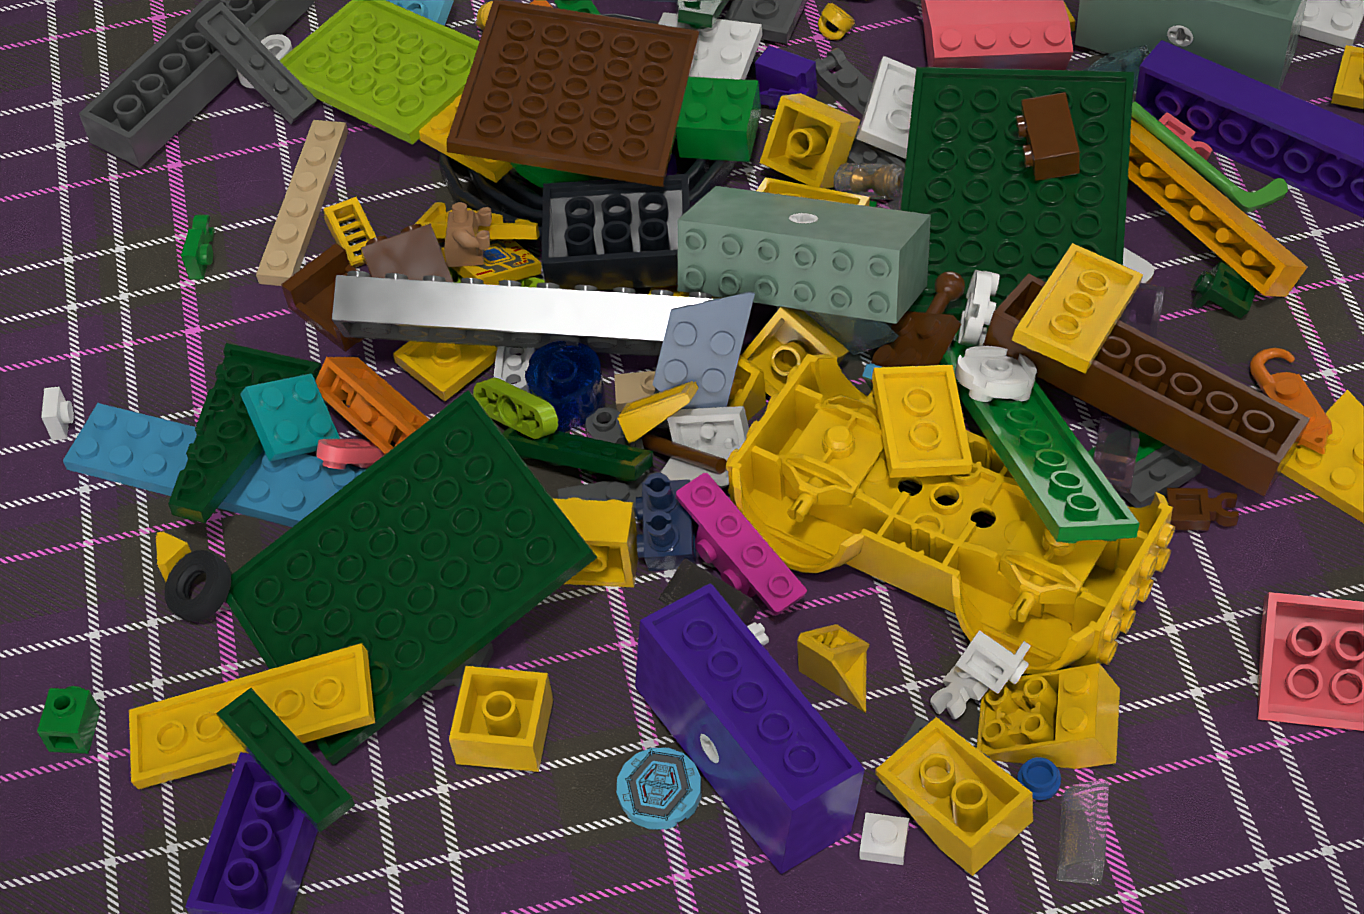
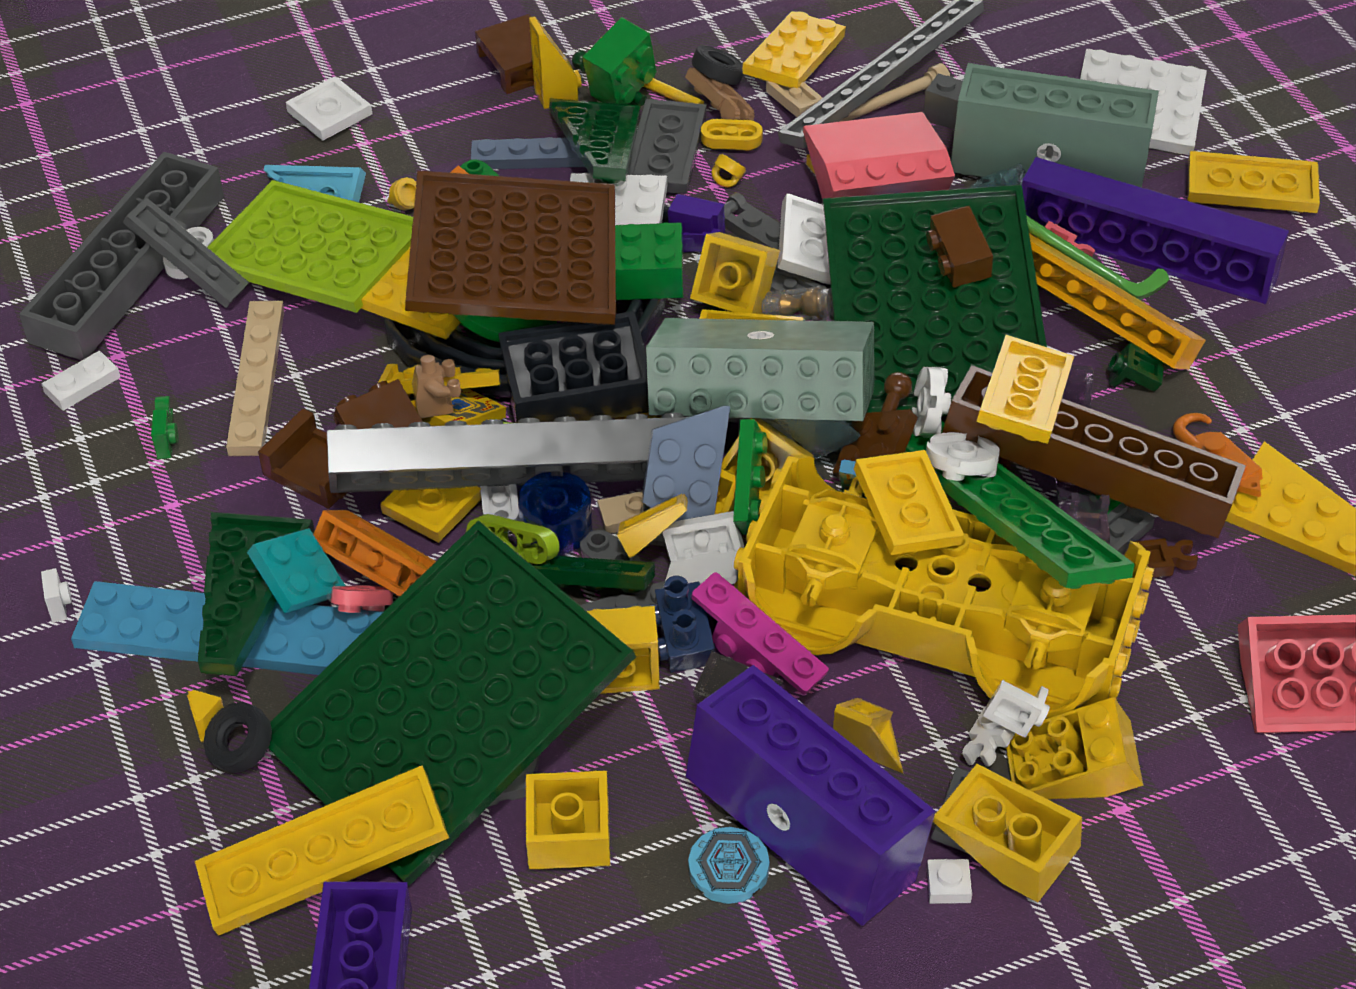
camera: 15 degrees left, 5 degrees down
(69, 720) = (135, 879): green brick -> none
(132, 187) = (81, 380): none -> white plate
(286, 759) = (374, 880): dark green plate -> none
(344, 212) = (310, 379): yellow slope -> none
(685, 453) = (686, 561): reddish brown bar -> none
(766, 366) = (749, 475): none -> green plate
(1040, 778) = (1080, 803): blue plate -> none
(1083, 833) = (1130, 850): clear brick -> none

